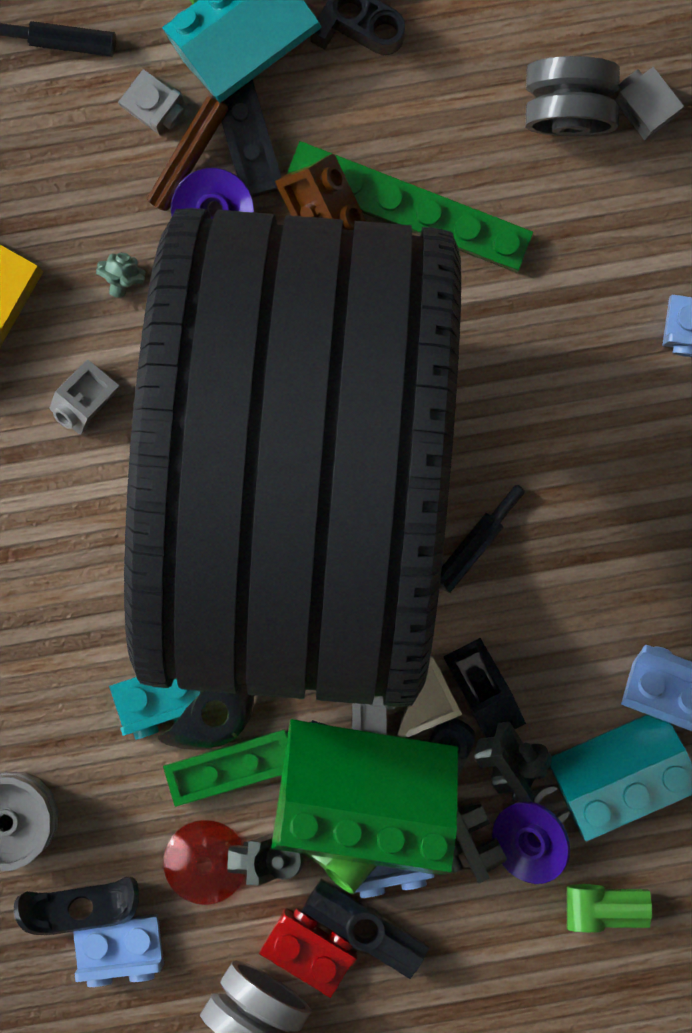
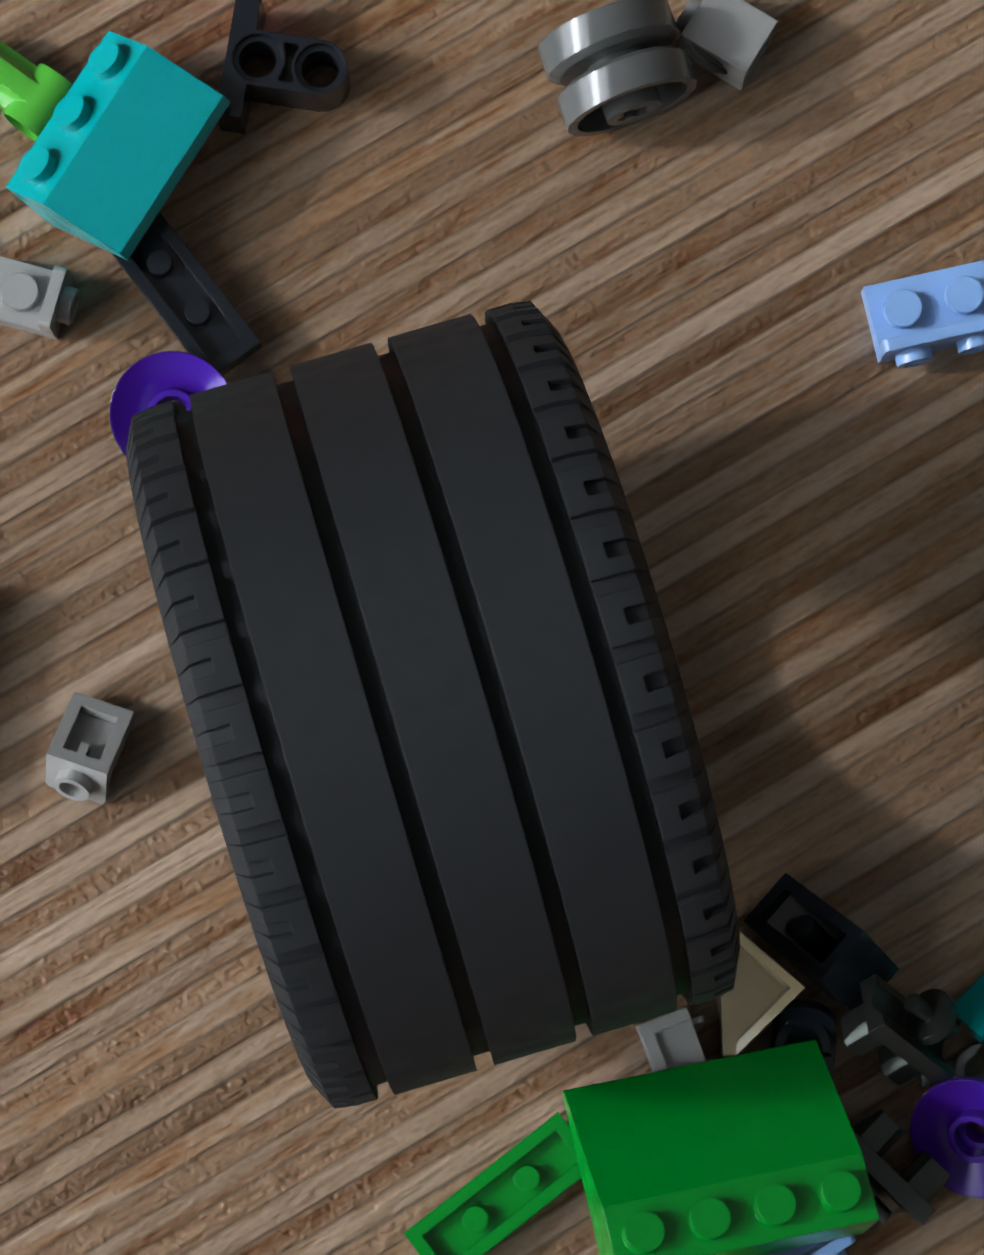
camera: 20 degrees left, 5 degrees down
(120, 272) = (76, 550): sand green plant -> none
(145, 706) = (354, 1142): teal bracket -> none
(187, 152) = (107, 347): reddish brown axle -> none
(194, 734) = (431, 1168): black piece -> none
(321, 193) = (312, 325): reddish brown bracket -> none
(411, 205) = (395, 303): green plate -> none
(477, 541) = (732, 724): black axle -> none

